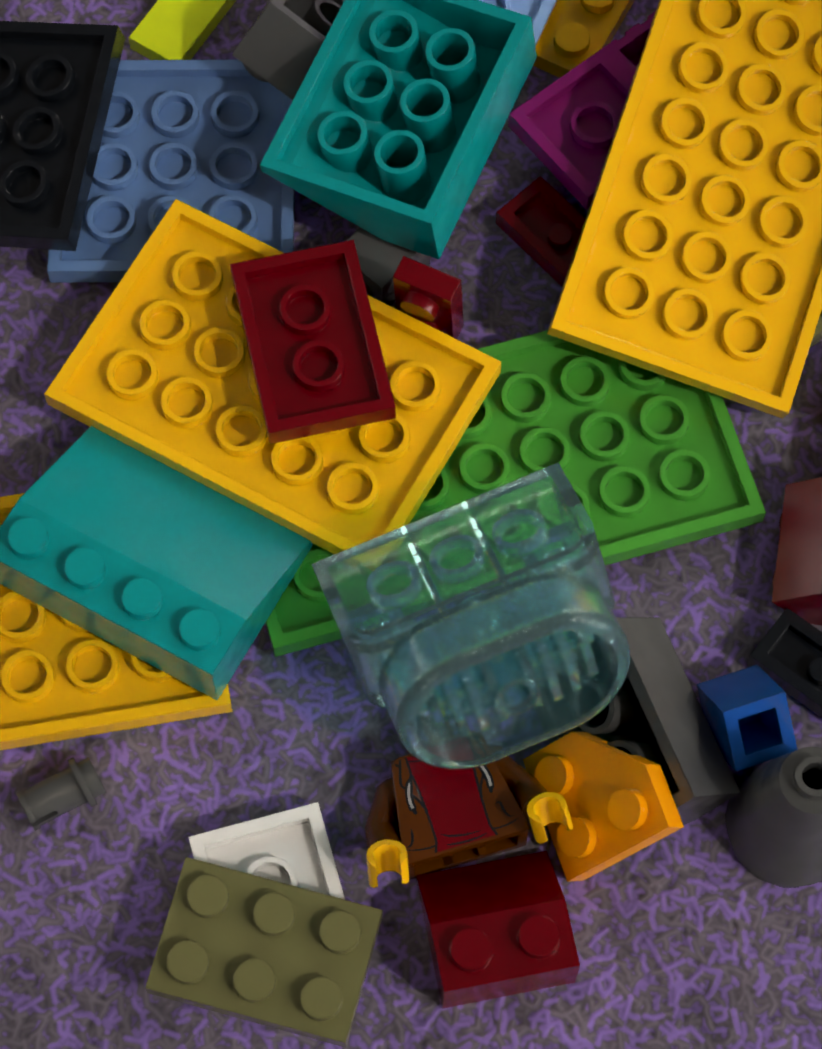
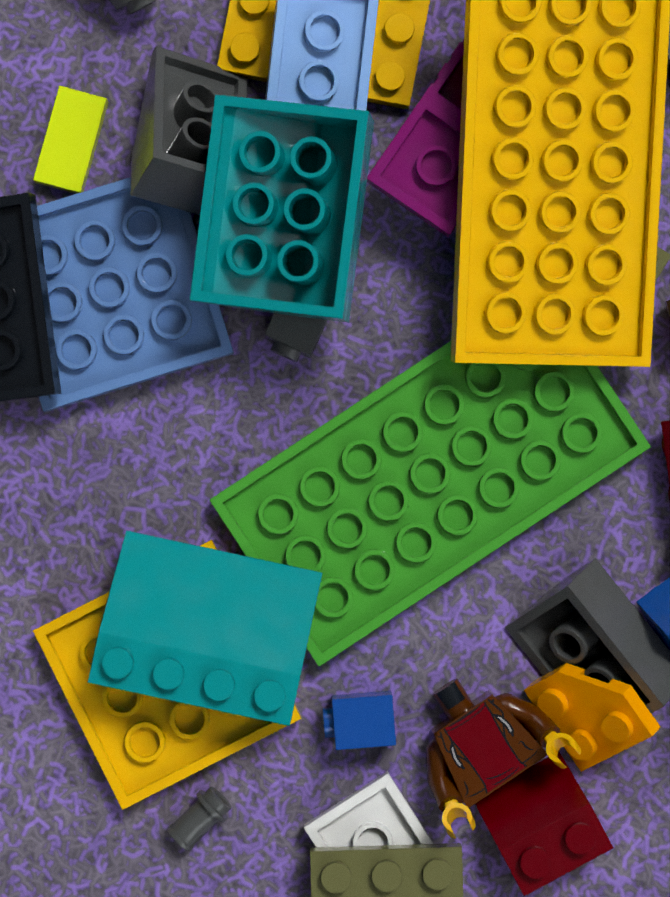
camera: 25 degrees left, 20 degrees up
(177, 382) = (252, 461): yellow plate -> none
(305, 729) = (361, 720): none -> blue brick
(312, 341) = (275, 429): dark red plate -> none
(429, 296) = (349, 360): dark red plate -> none
(482, 622) = (474, 629): clear light blue brick -> none
(543, 227) = (420, 254): dark red plate -> none

